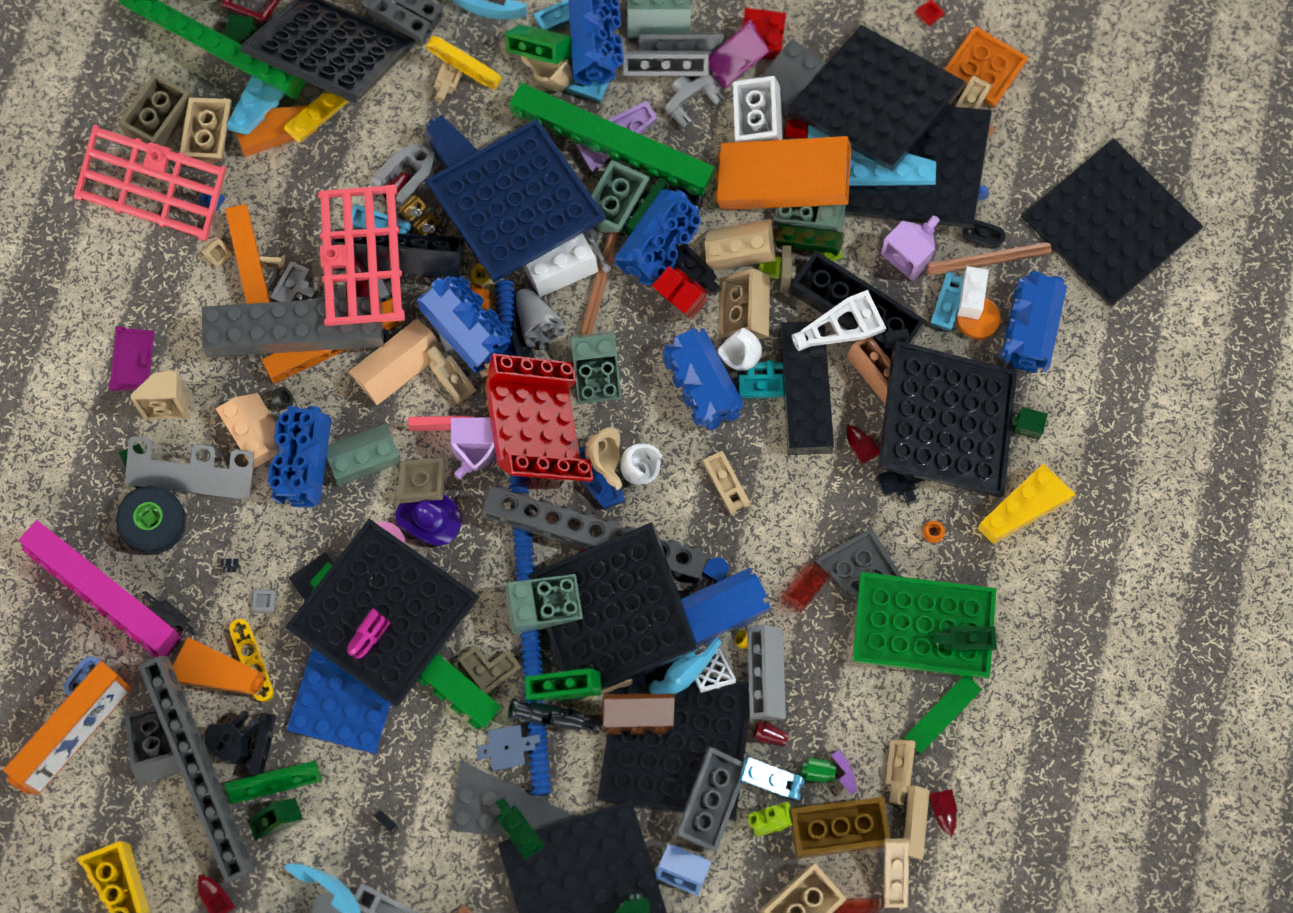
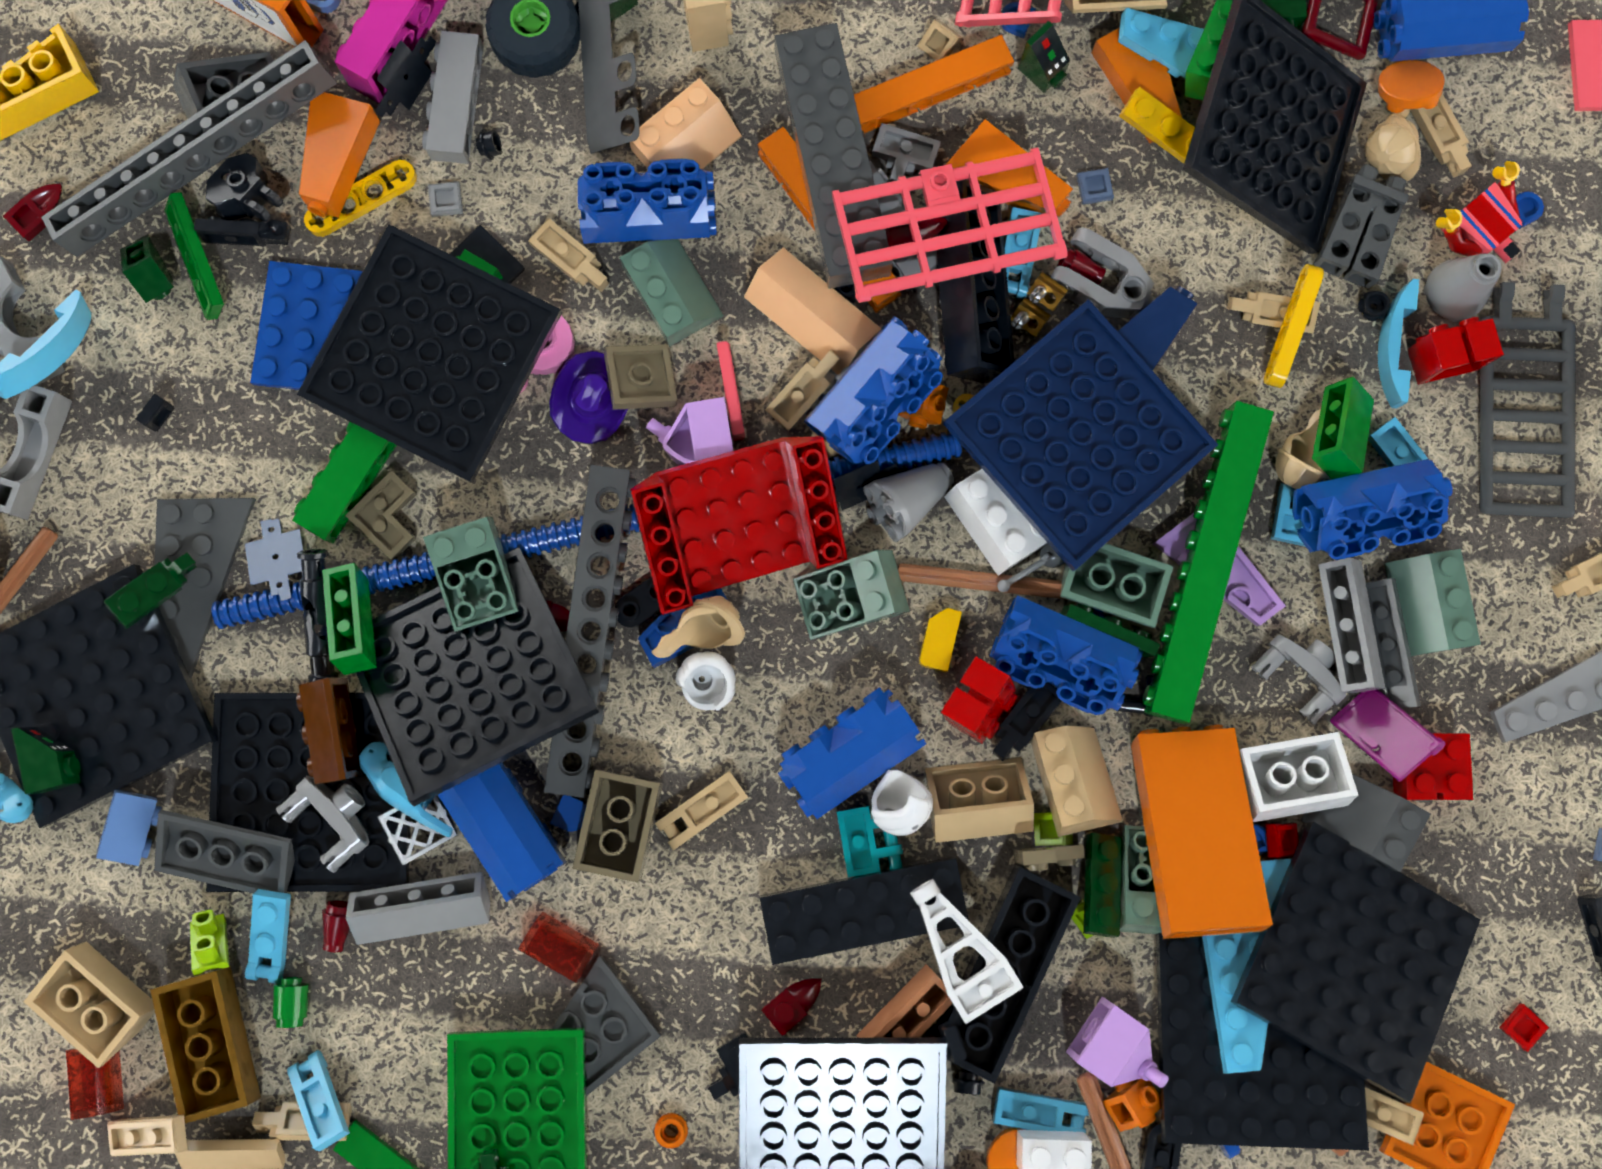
camera: 80 degrees right, 10 degrees up
(190, 583) = (454, 97): none -> light grey brick
(248, 184) = (1045, 59): none -> slope
(272, 261) = (940, 117): tan slope -> none
(281, 398) = (735, 168): pearl dark grey tile -> none
(306, 228) = (990, 144): none -> orange slope
(323, 519) = (568, 255): none -> tan hinge
(340, 169) = (1095, 186): none -> sand blue tile
(367, 634) = (386, 335): dark pink arm -> none
(456, 8) = (1380, 300): none -> black plate
(579, 500) = (641, 599): none -> black plate
(635, 315) = (940, 640): none -> yellow piece
(690, 716) = (338, 810): none -> light grey connector
(729, 534) = (617, 826): none -> dark tan brick
(741, 639) = (466, 862): yellow hinge -> none
(848, 779) = (283, 1046): medium lavender slope -> none
(886, 754) = (318, 1101): none -> medium azure plate
(925, 340) = (967, 1083): none -> black plate
(948, 243) = (1140, 1103): none -> orange brick

